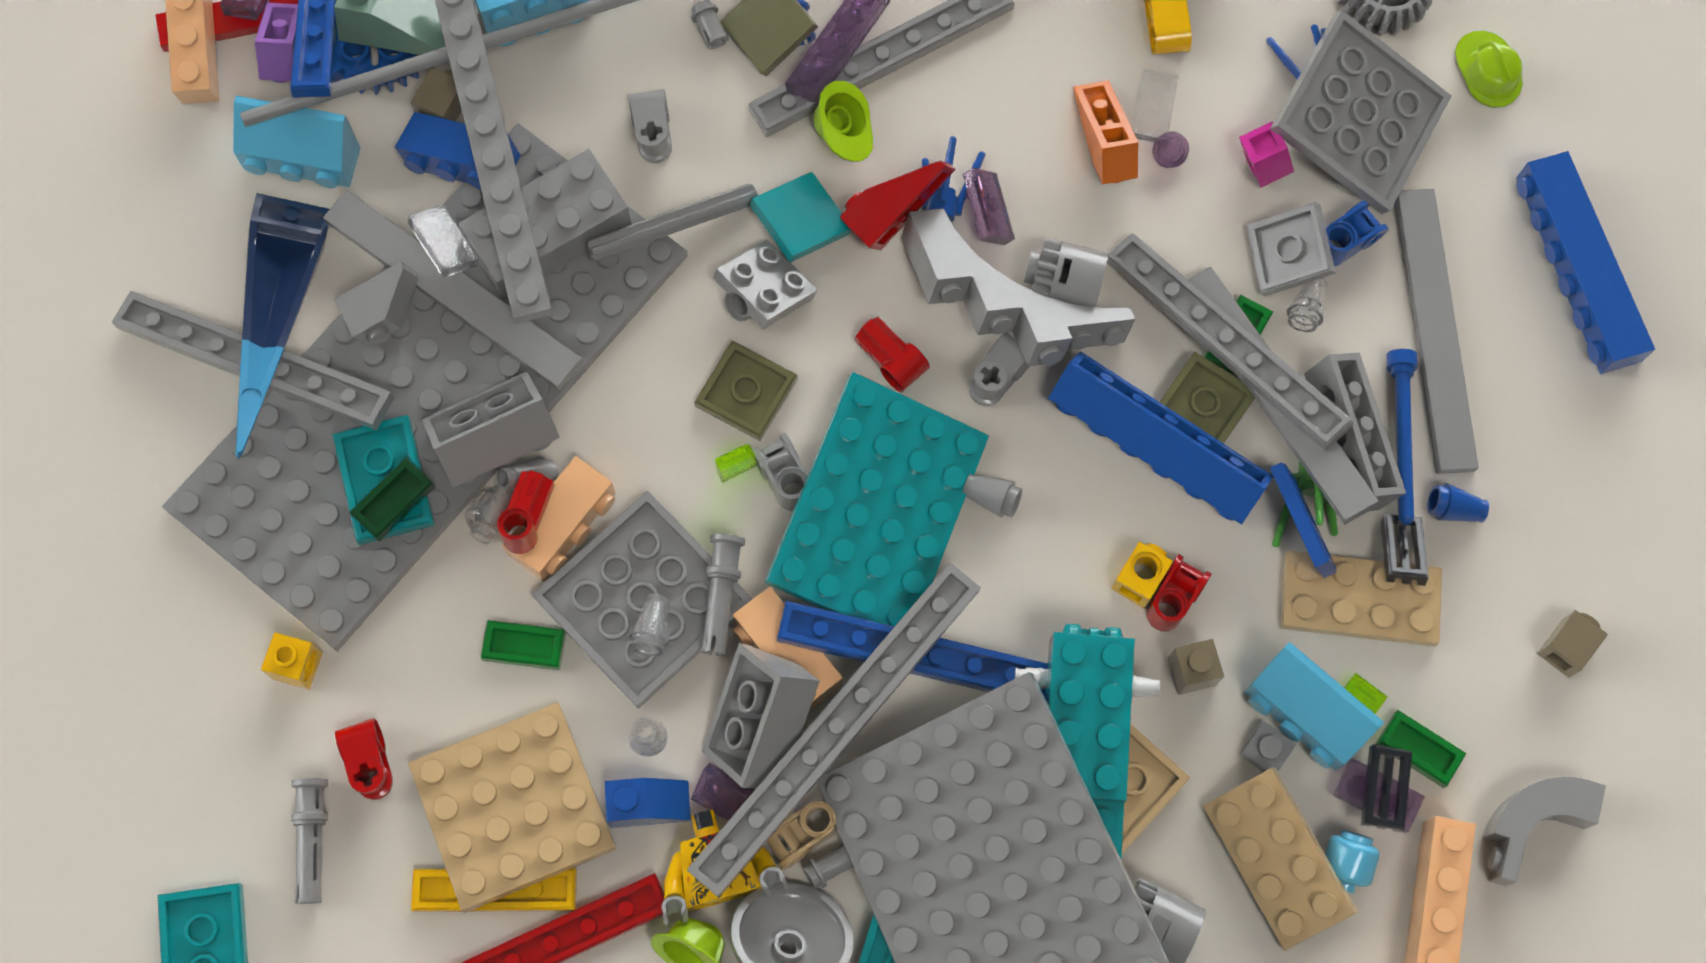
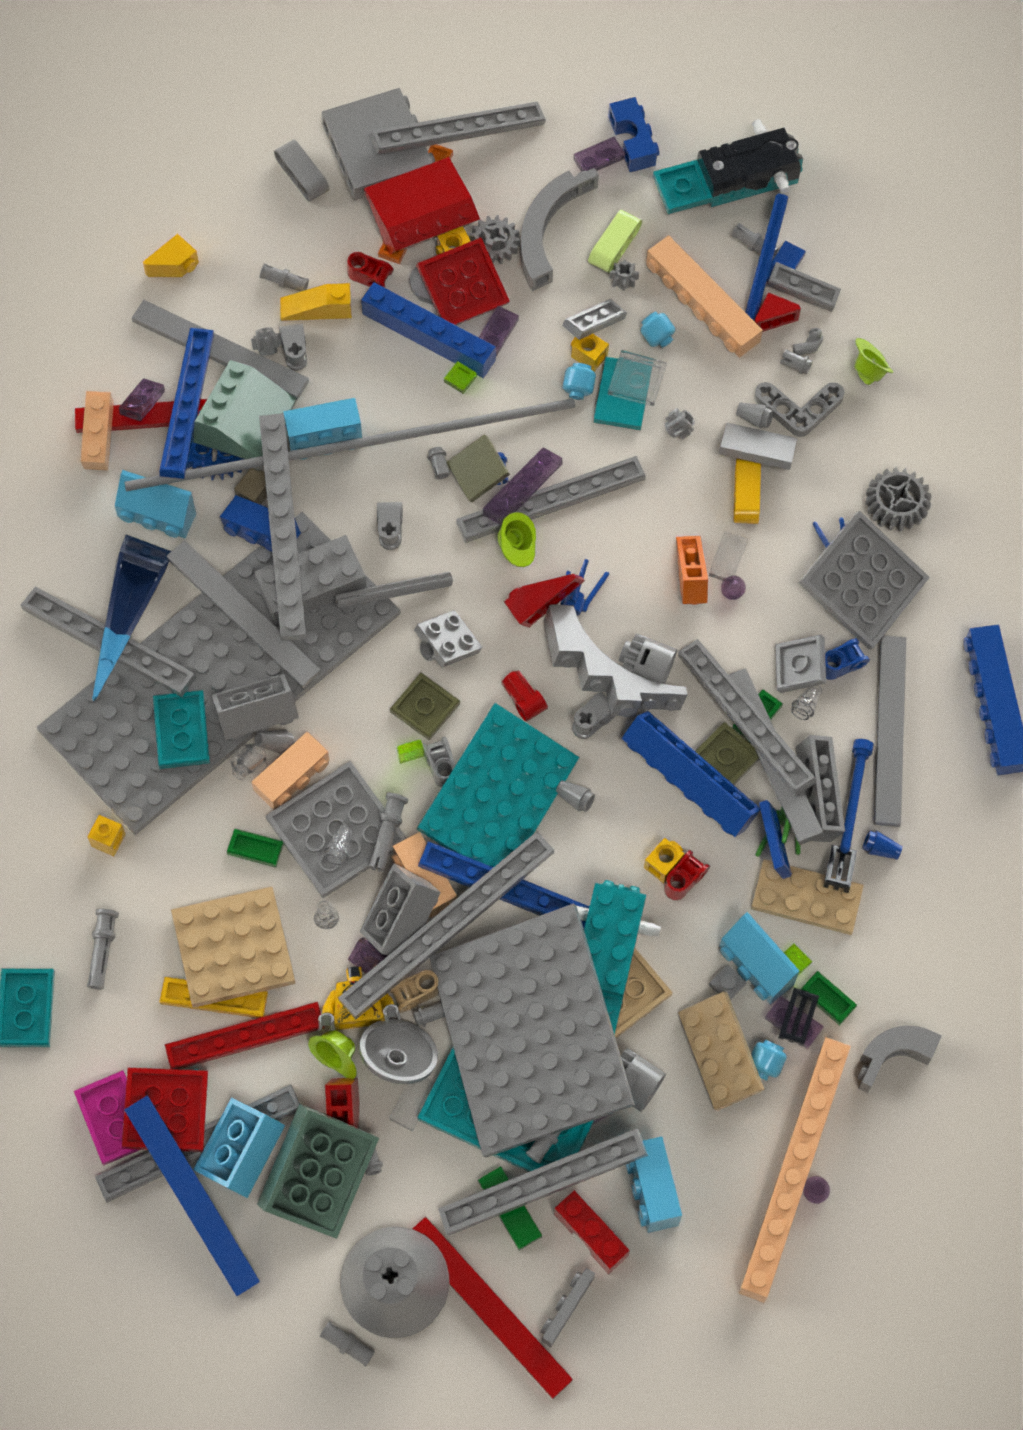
camera: 10 degrees right, 5 degrees down
(276, 42) = (153, 437): medium lavender slope -> none
(362, 752) = (143, 901): red piece -> none
(378, 304) = (195, 616): light grey slope -> none
(392, 499) = (185, 742): dark green tile -> none
(443, 241) = (242, 582): clear tile -> none
(526, 510) = (269, 760): red piece -> none
(646, 802) = (319, 956): blue slope -> none
(800, 216) = (478, 598): teal tile -> none
(988, 206) = (604, 608): clear purple plate -> none
(1195, 666) = (688, 923): dark tan brick -> none
(1266, 154) = (795, 599): dark pink brick -> none
(1489, 68) = (961, 562): lime piece -> none
(1573, 643) = (940, 944): dark tan brick -> none

